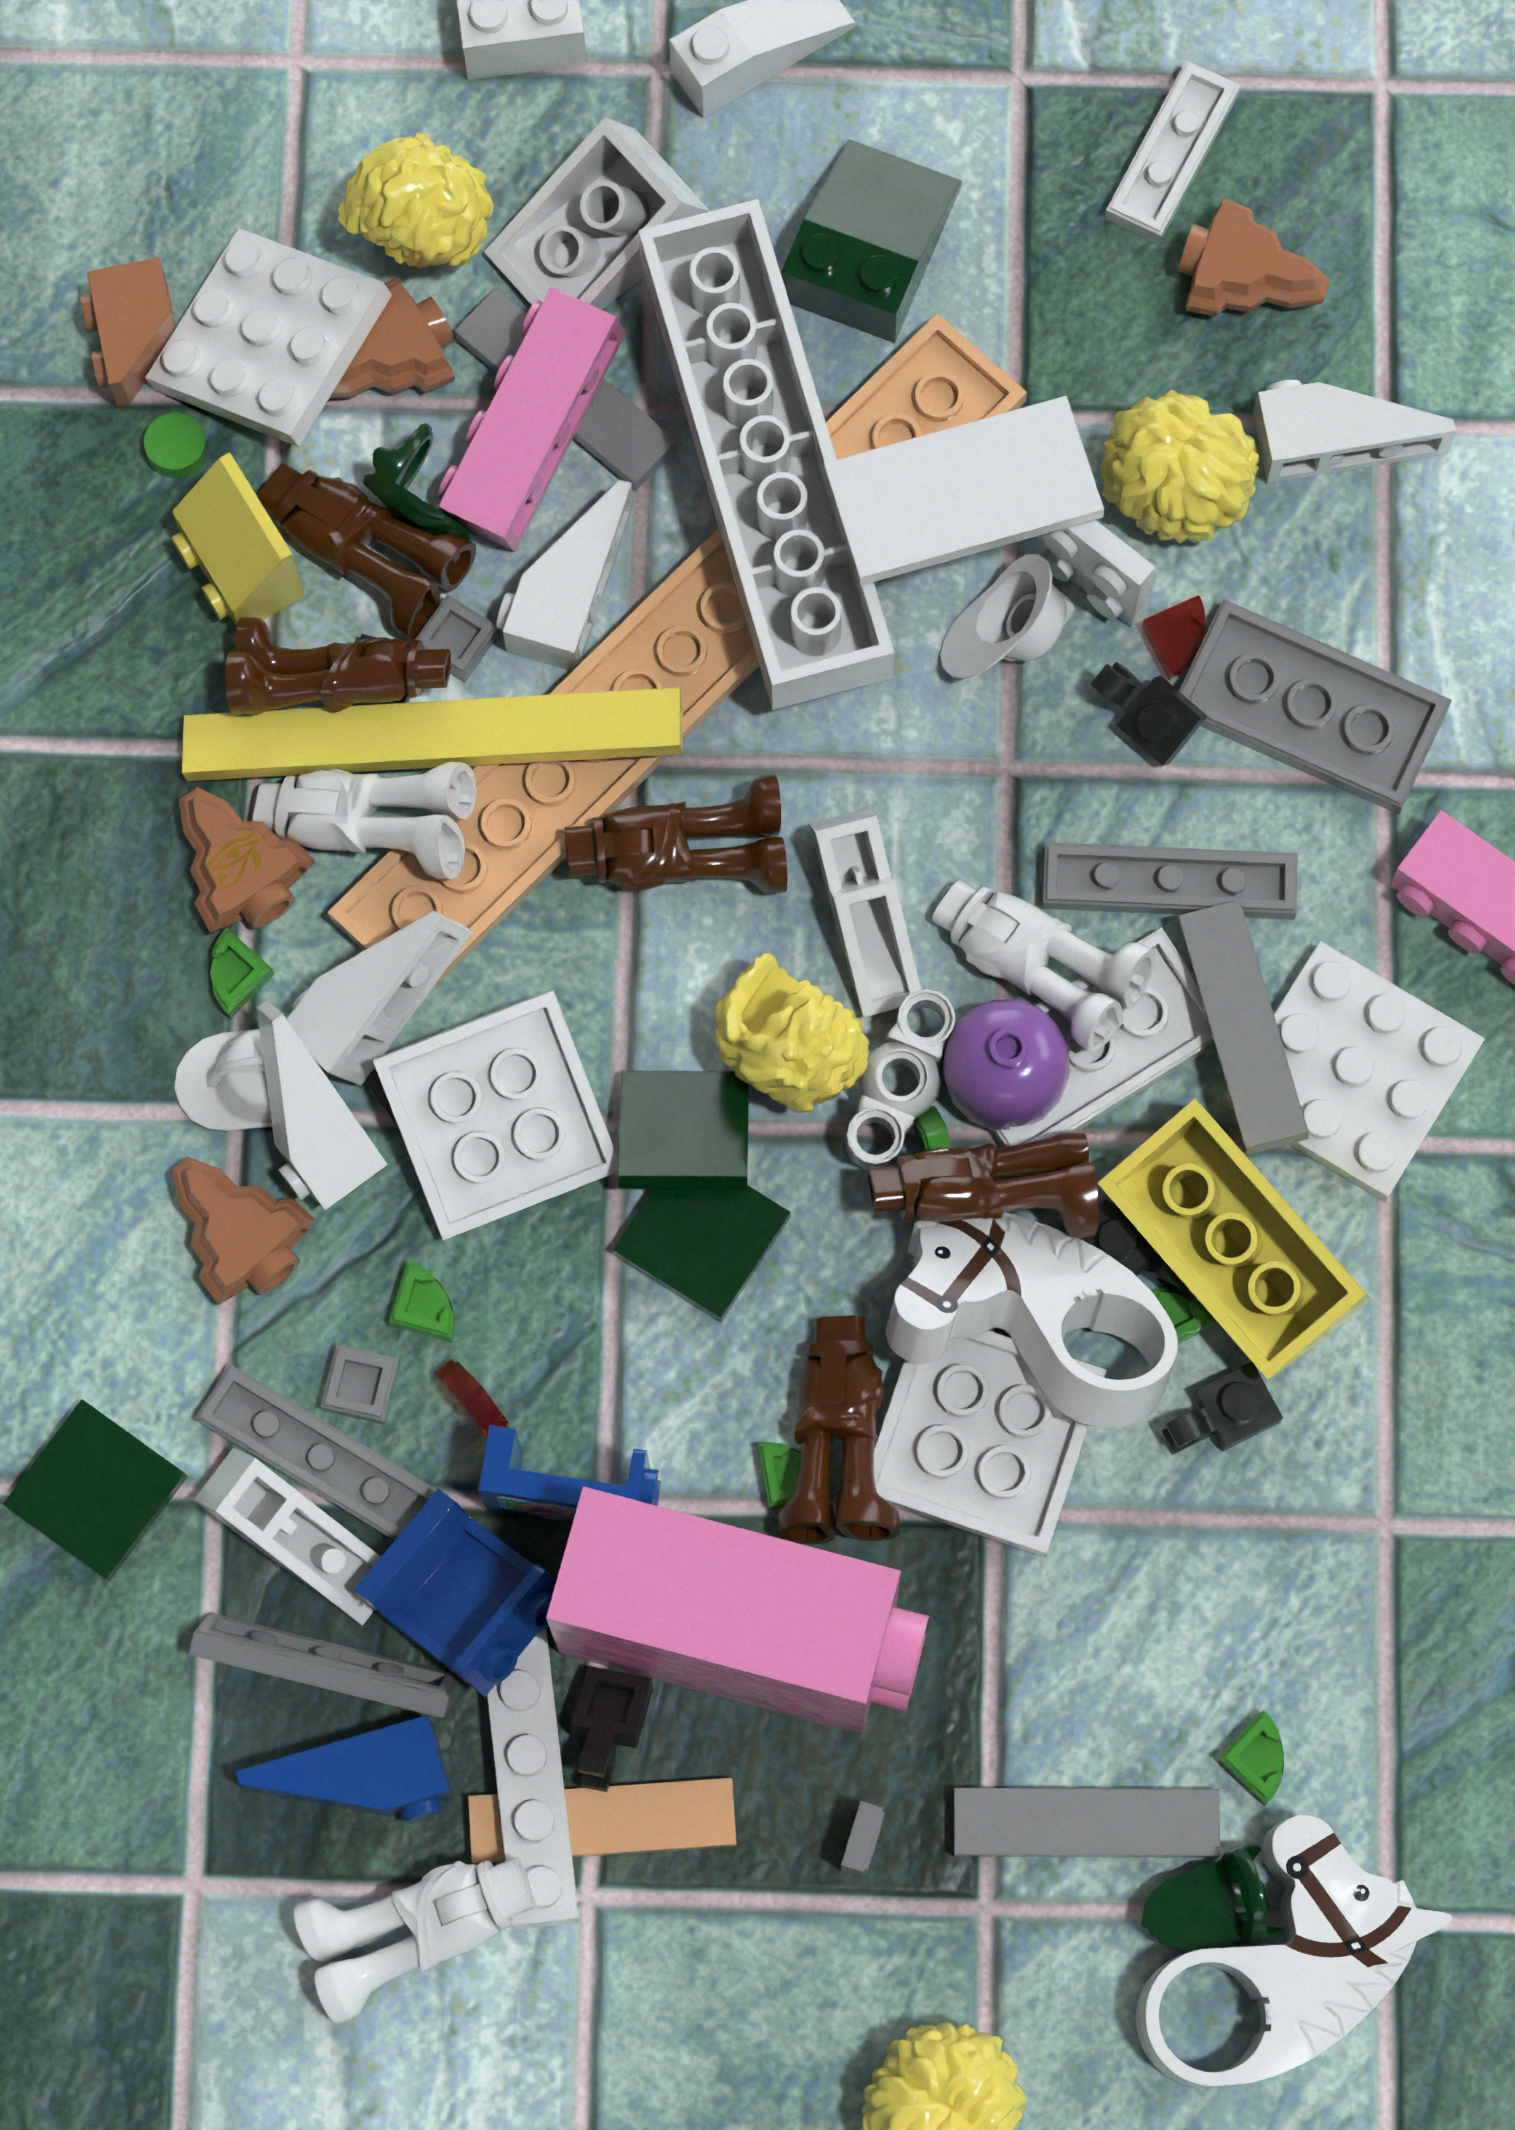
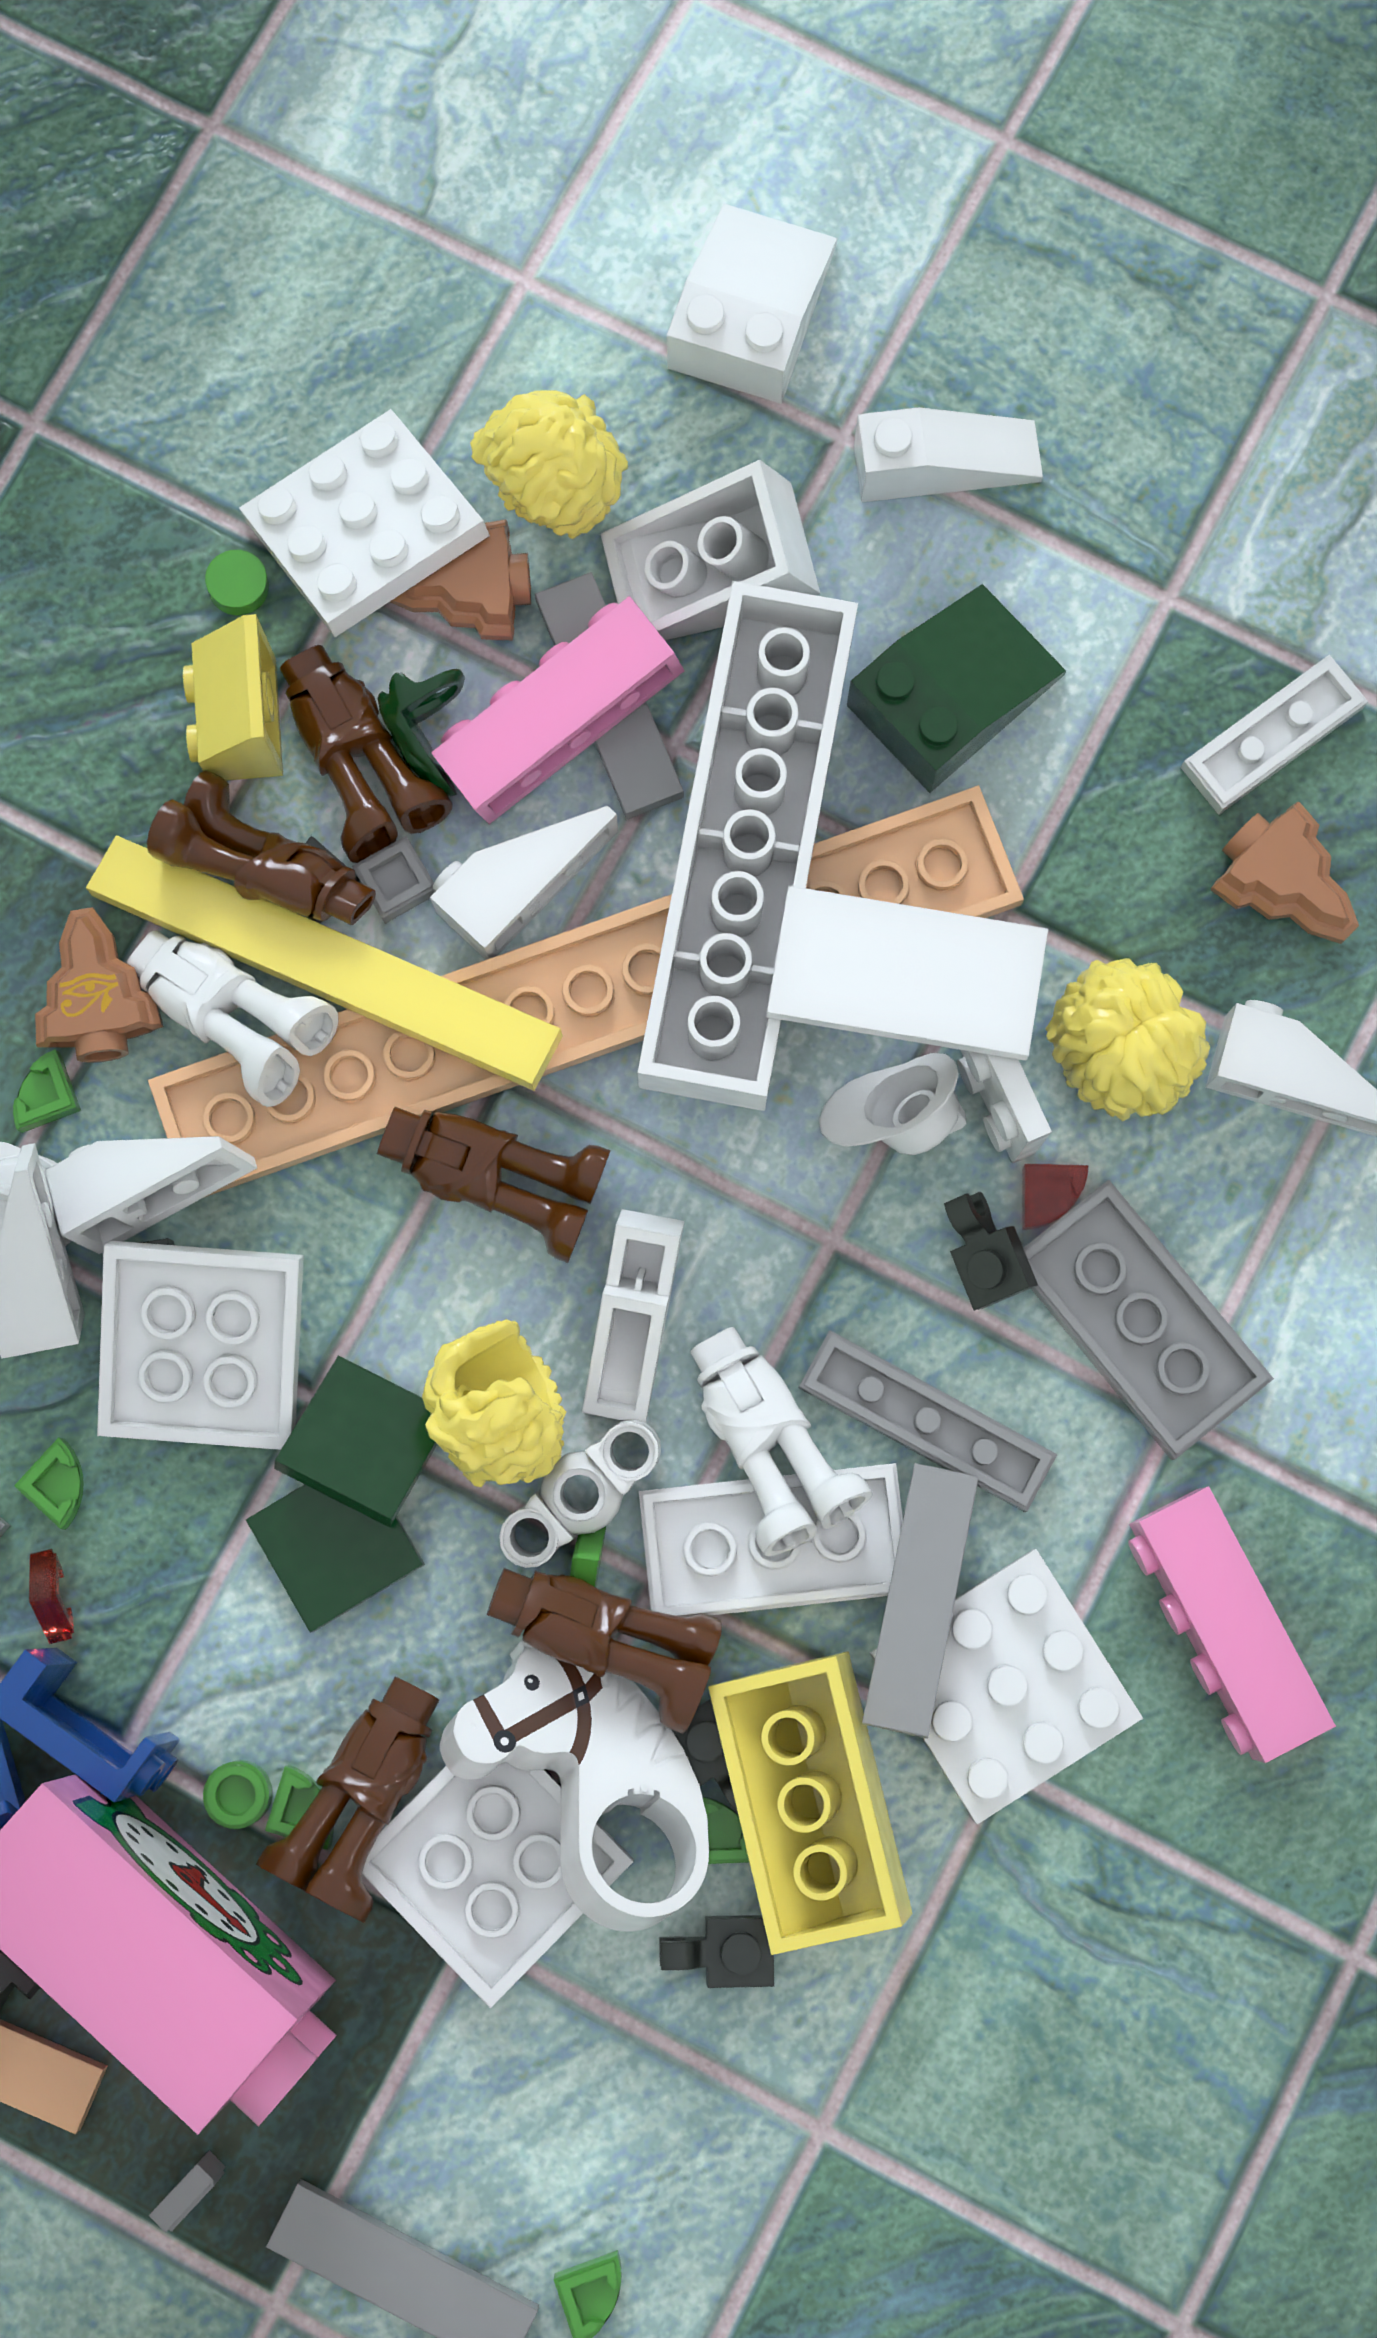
camera: 25 degrees right, 5 degrees up
(133, 320) = (252, 448): nougat slope -> none
(727, 1490) = (237, 1794): none -> bright green tile
(1006, 1064) = (685, 1526): medium lavender cylinder -> none

